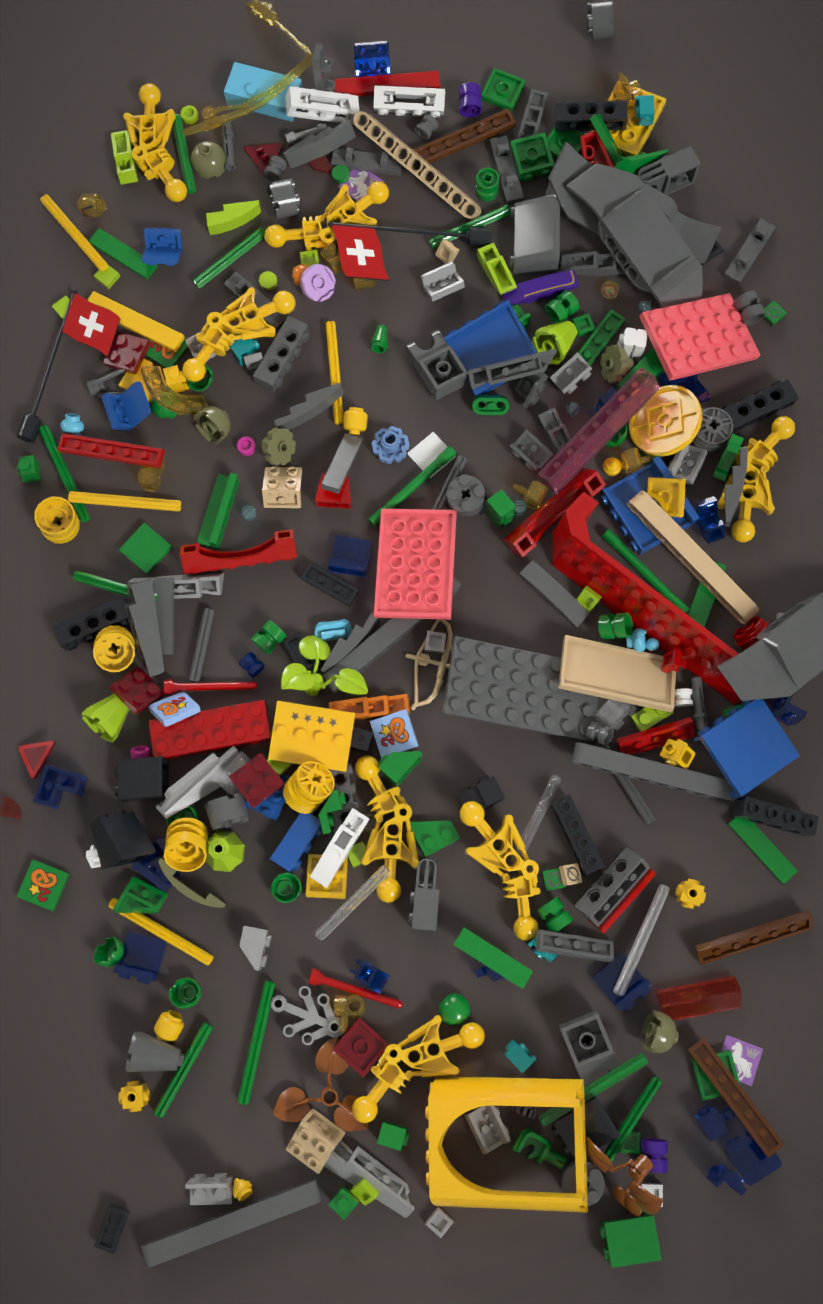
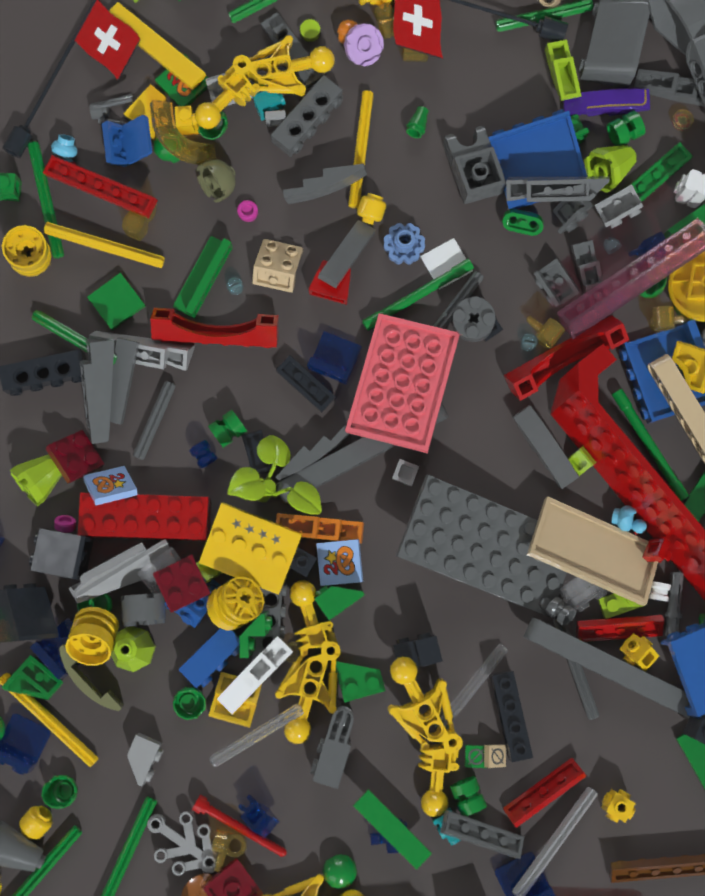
camera: 10 degrees right, 5 degrees up
(61, 306) = (79, 12): lime tile -> none
(114, 659) = (59, 417): yellow wheel -> none
(127, 353) = (140, 79): dark red plate -> none
(172, 686) = (112, 459): red piece -> none
(278, 446) = (282, 220): olive plant -> none
(309, 257) = (360, 14): lime tile -> none
(333, 630) = (299, 434): medium azure piece -> none
(356, 854) = (272, 683): lime tile -> none
(424, 660) = (390, 488): tan piece -> none
(442, 281) = (500, 72): light grey bracket -> none
(447, 251) = (513, 39): tan tile -> none
(500, 509) = (508, 342): green brick -> none
(583, 325) = (645, 153): green tile -> none
(612, 466) = (640, 319): yellow plate -> none
(612, 886) = (546, 779): dark grey brick -> none
(615, 364) = (670, 206): olive plant -> none
(618, 625) = (607, 498): green wheel -> none

